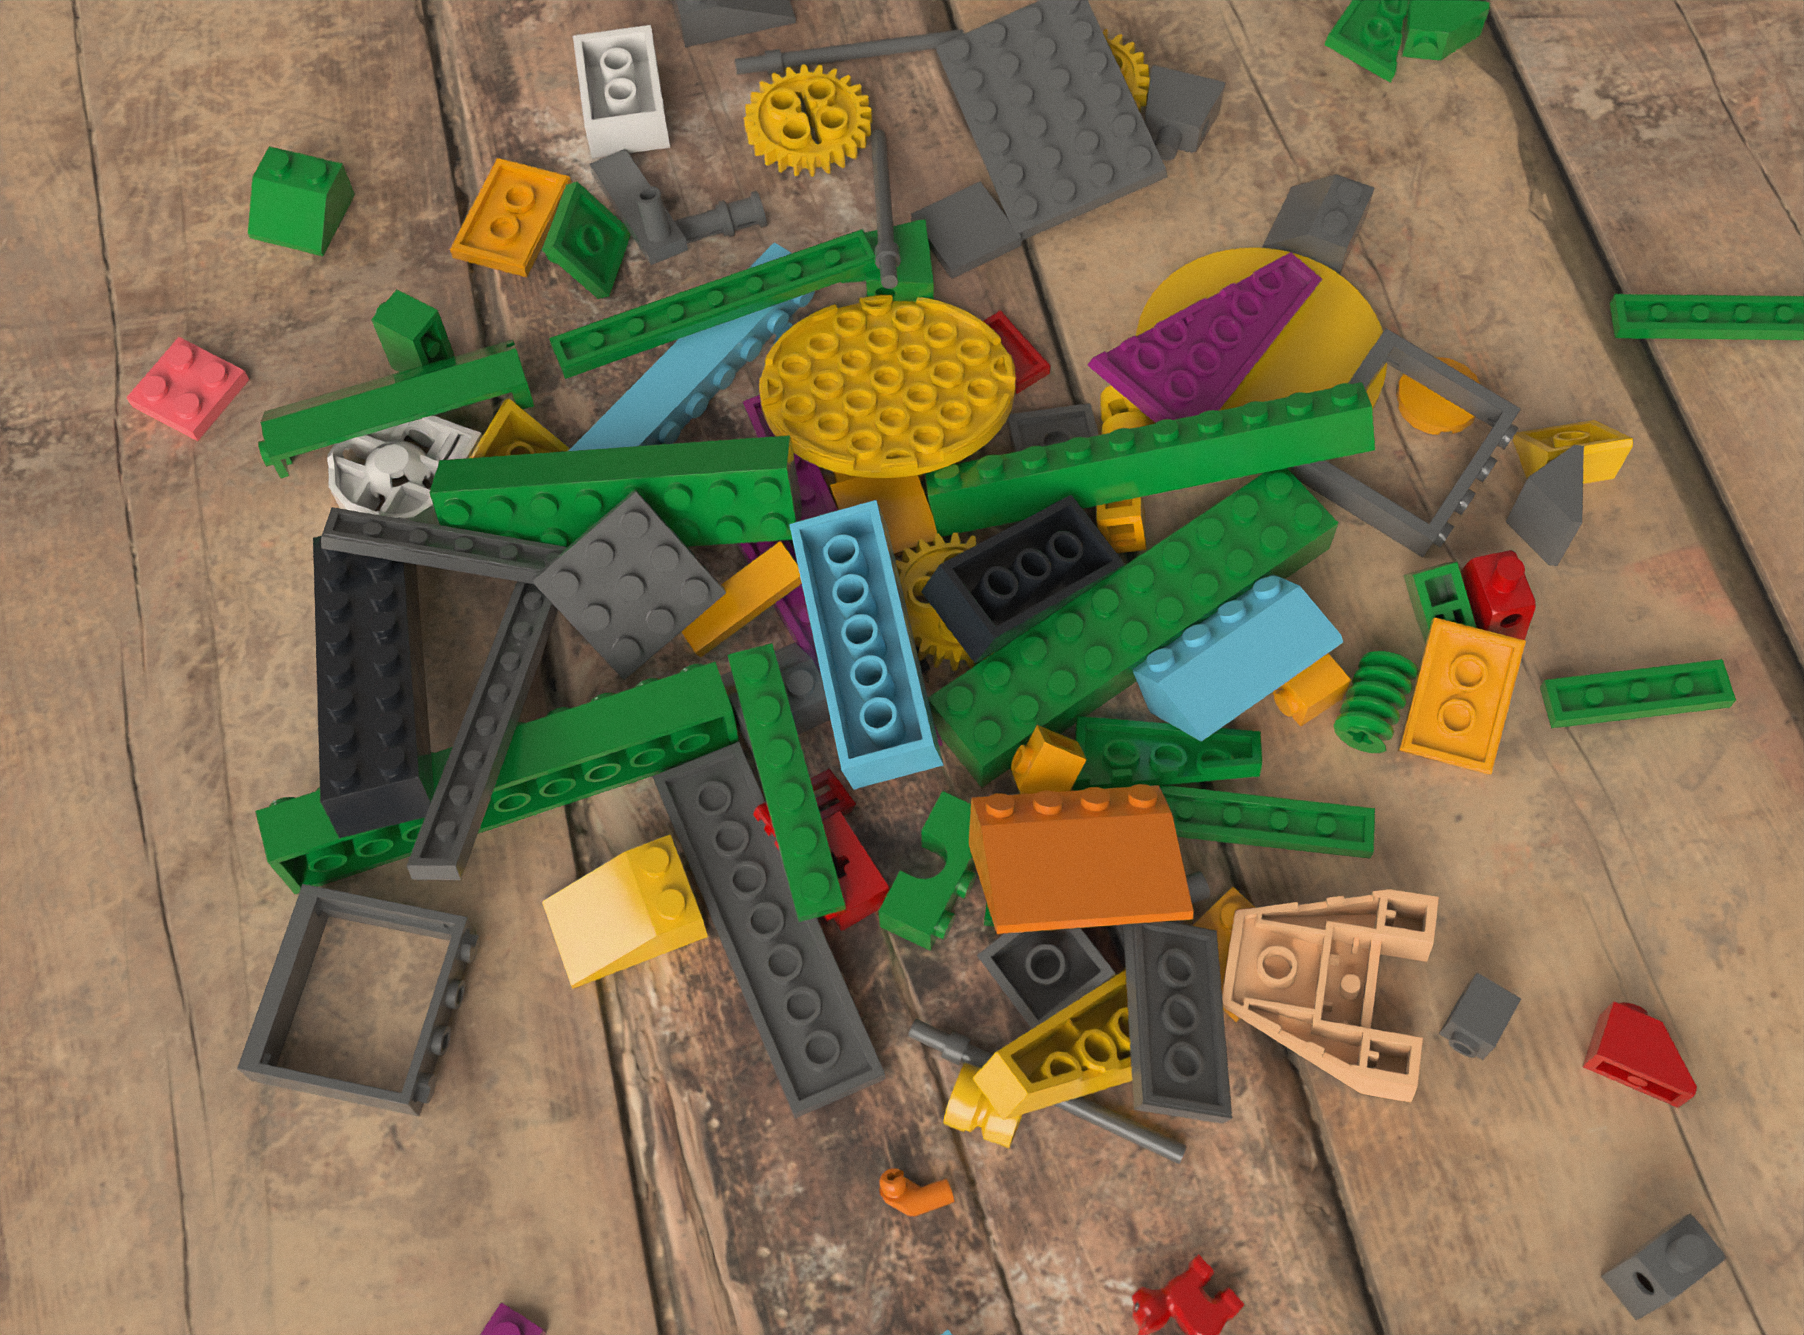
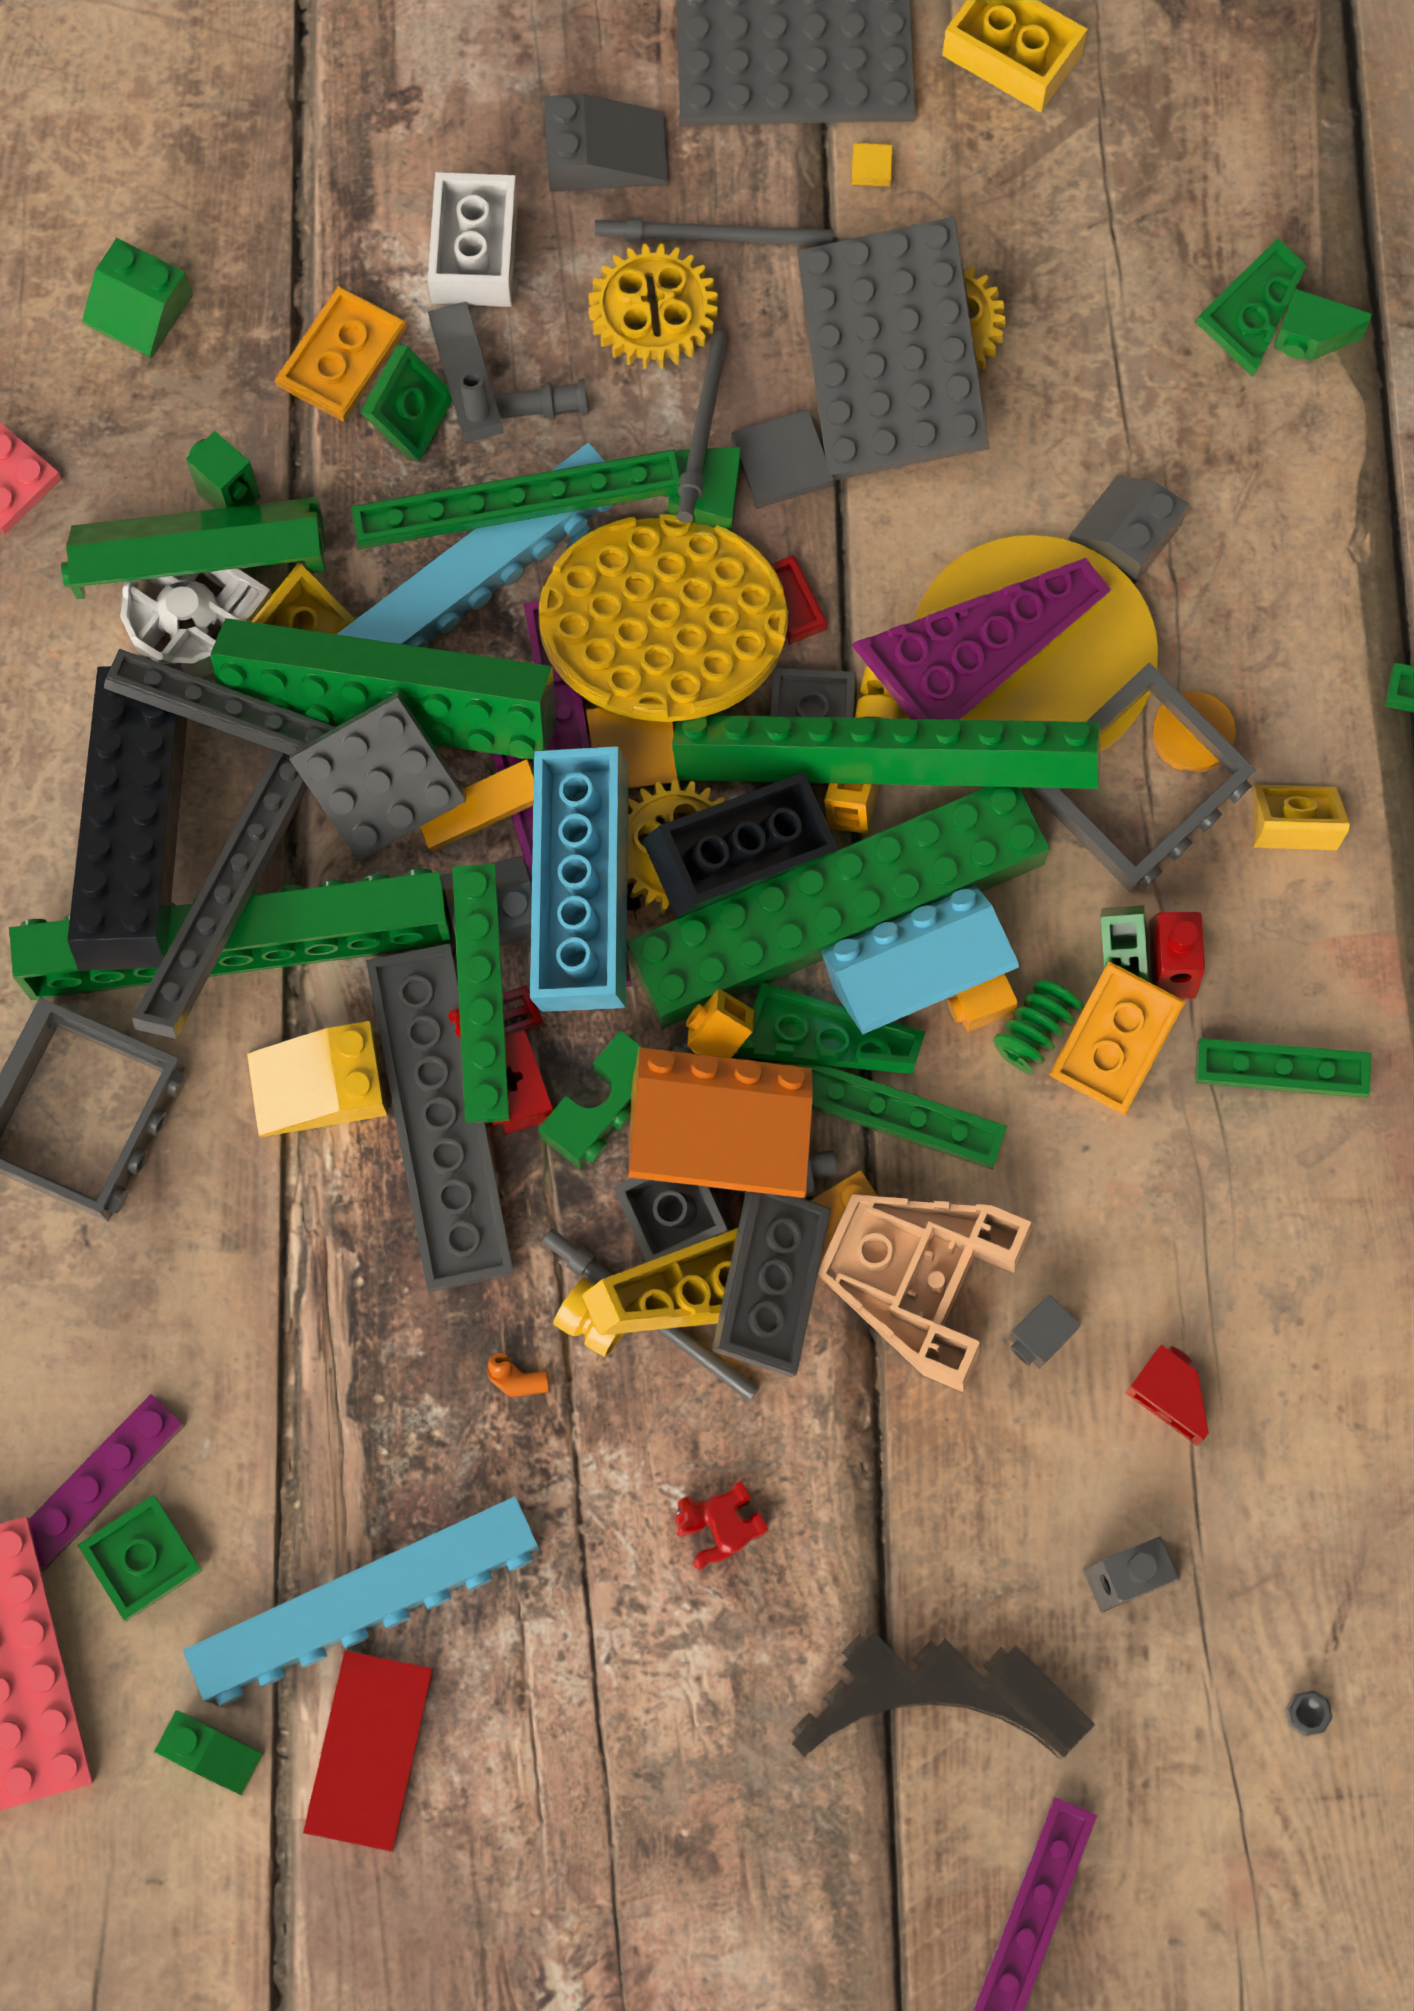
camera: 10 degrees right, 10 degrees up
(1181, 110) = (1025, 371): dark grey torso -> none
(1551, 506) = (1253, 870): dark grey slope -> none

